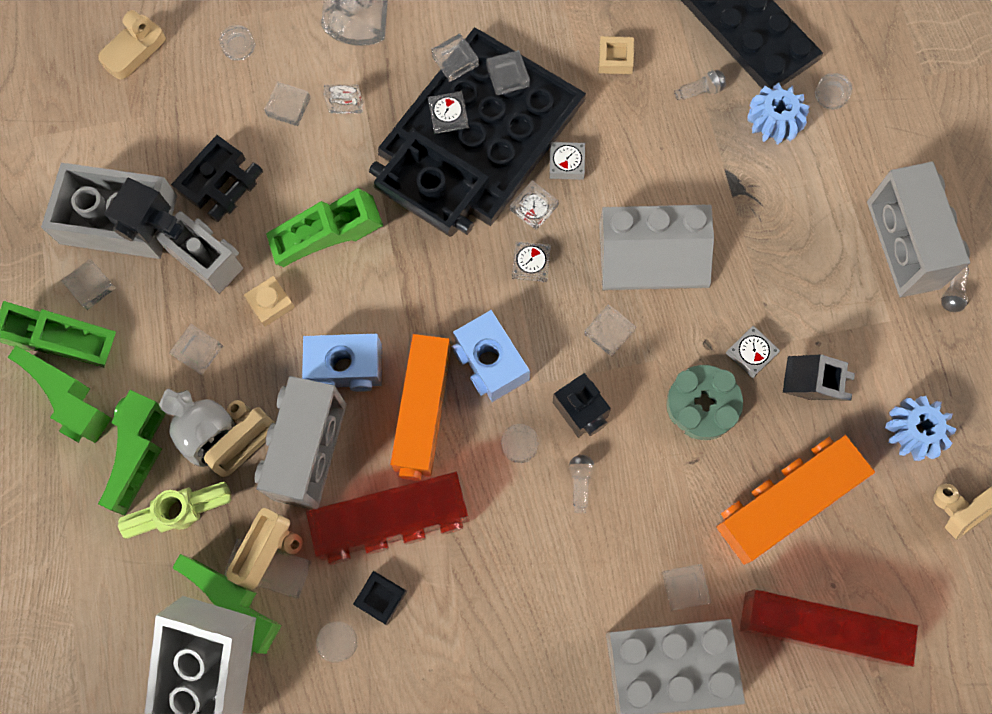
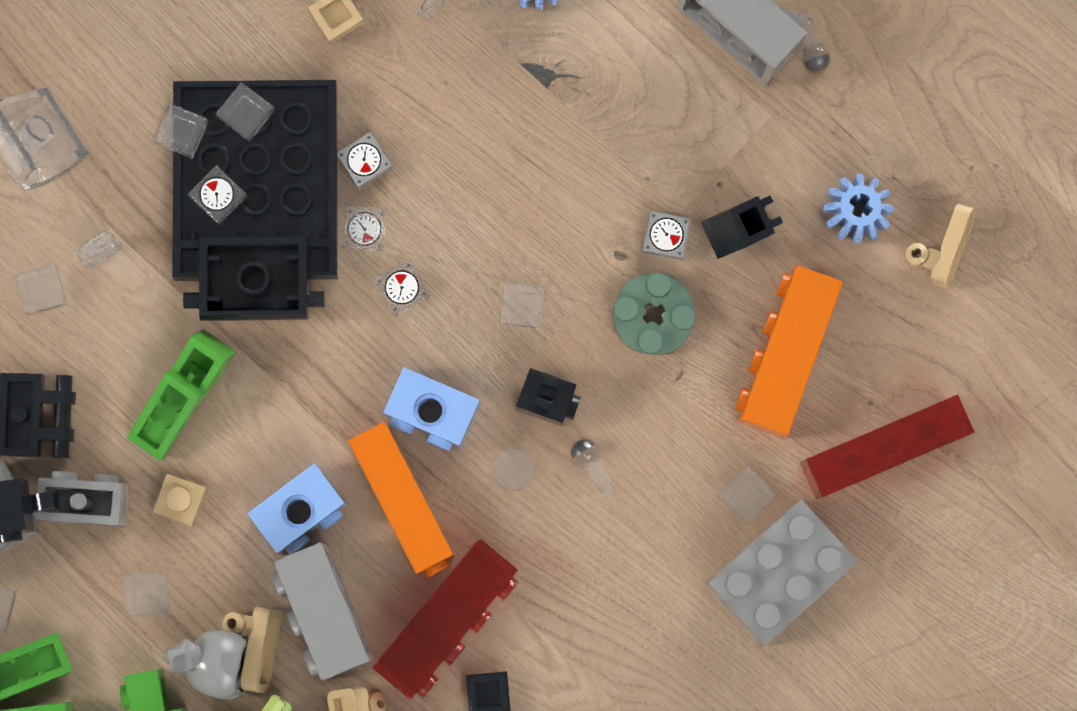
camera: 45 degrees left, 10 degrees up
(656, 247) = (511, 196): light grey slope -> none

